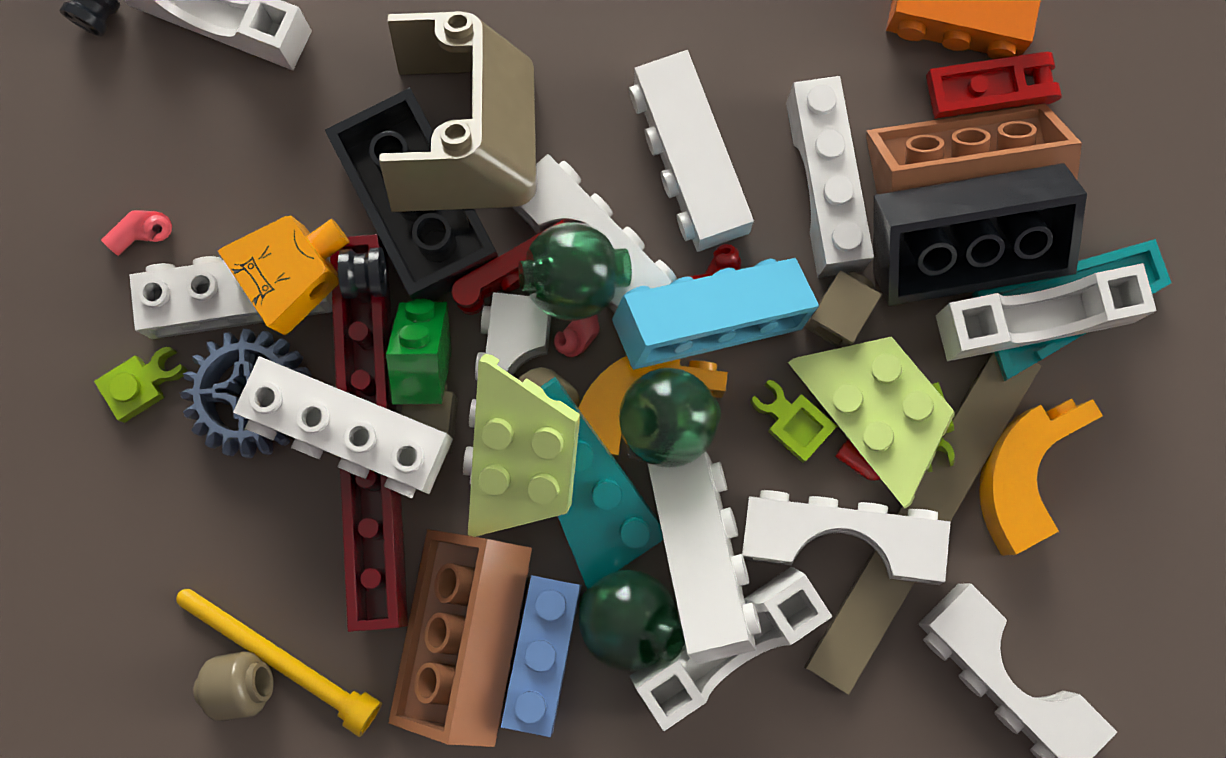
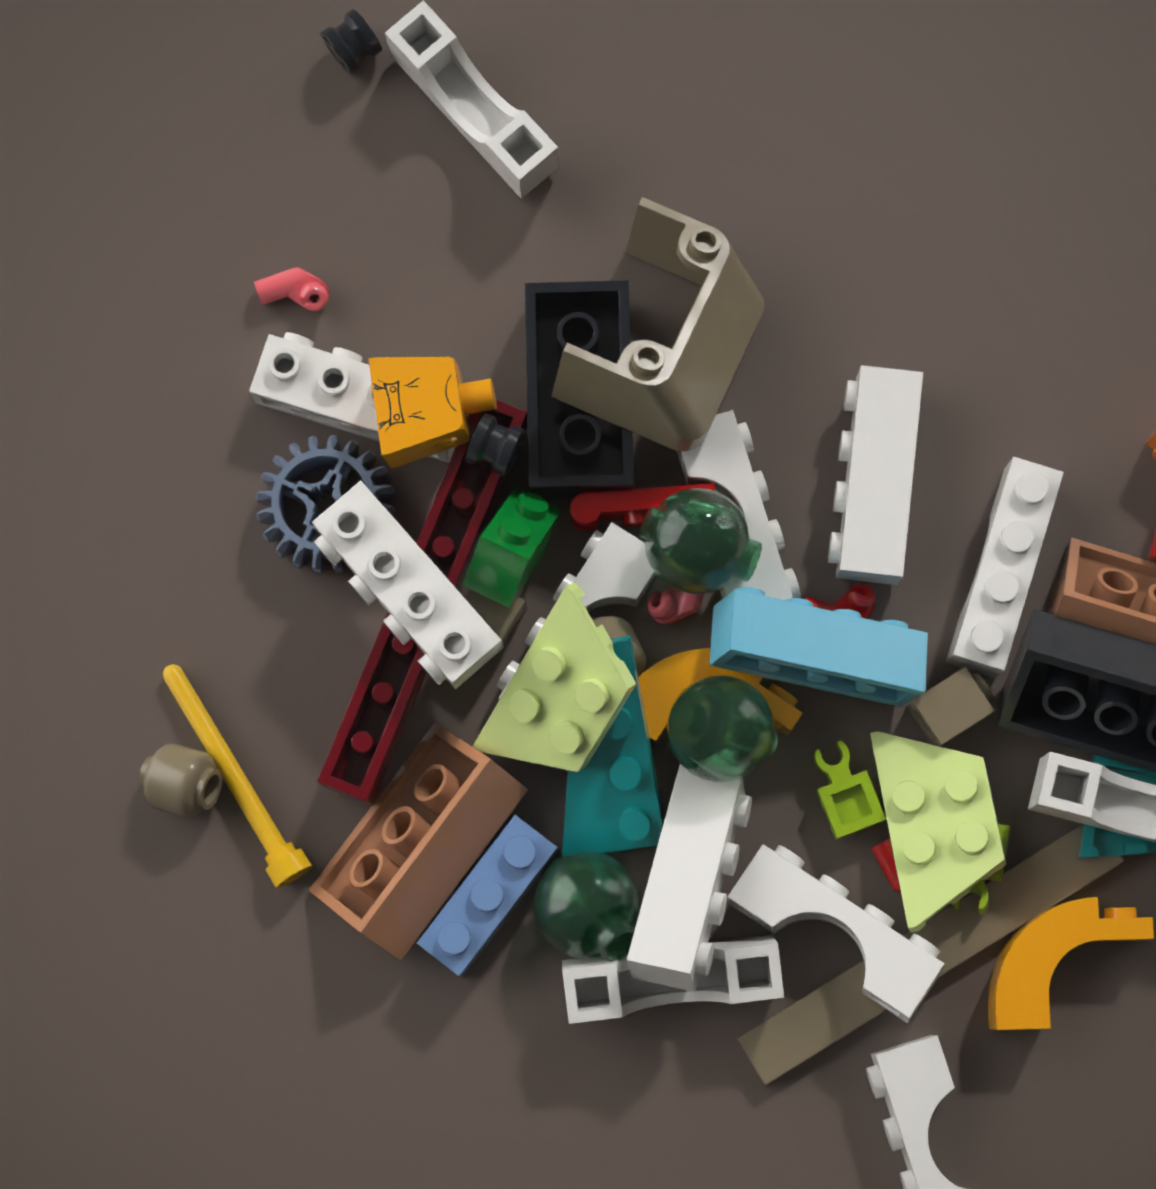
camera: 30 degrees right, 0 degrees up
(135, 386) = (217, 442): lime plate -> none

